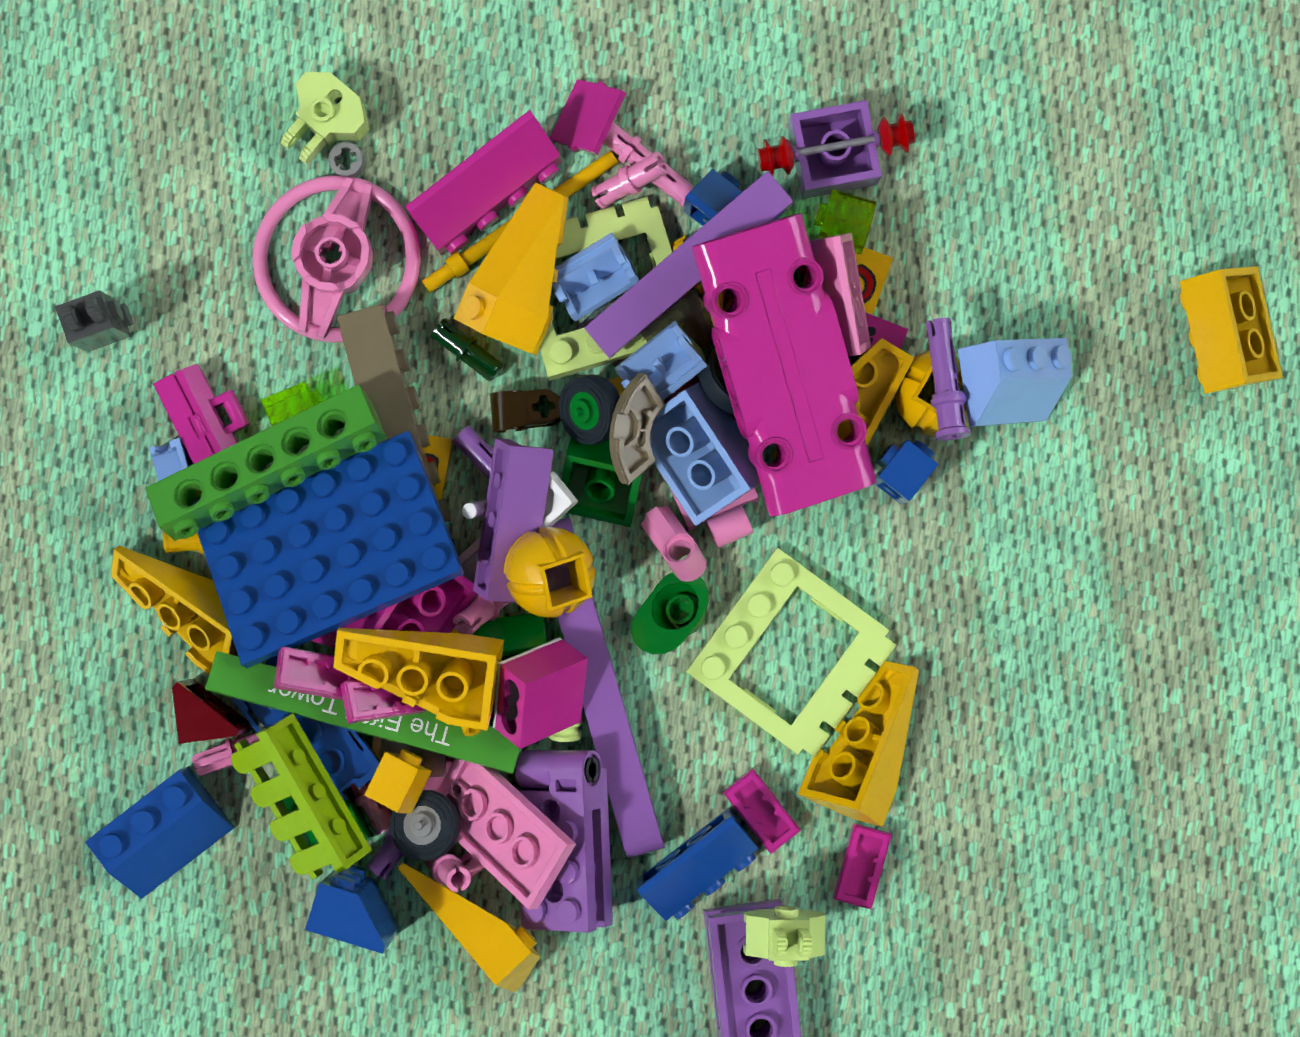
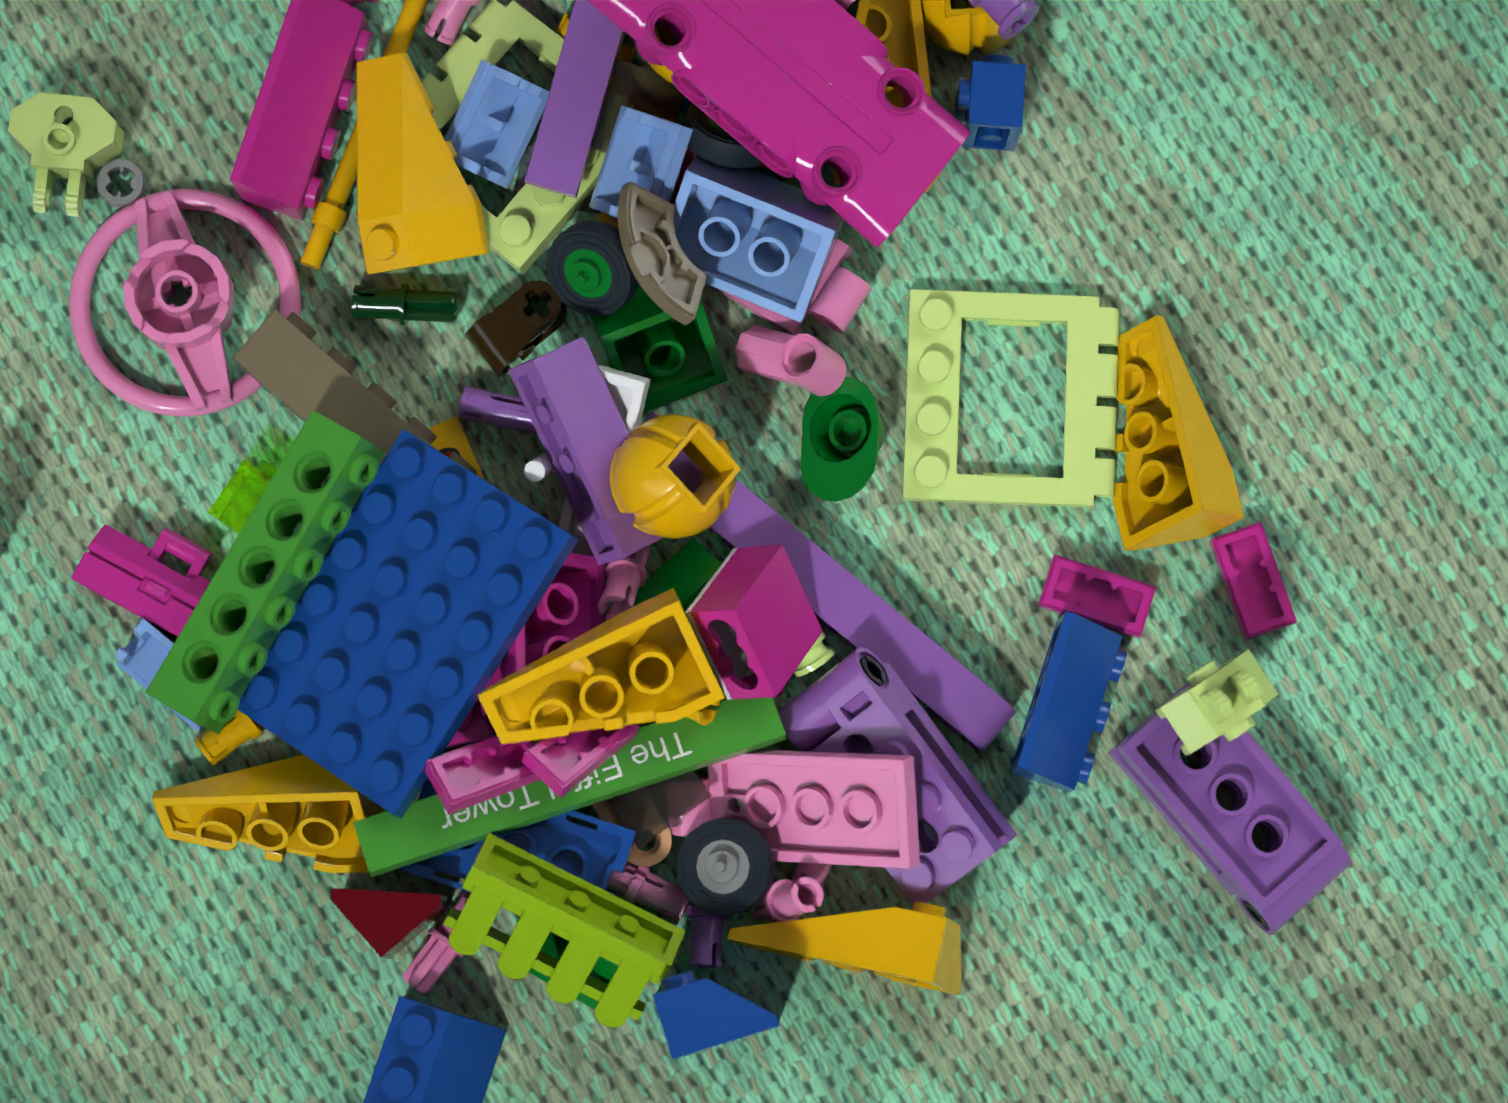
camera: 35 degrees left, 5 degrees down
(398, 781) = (662, 831): yellow brick -> none

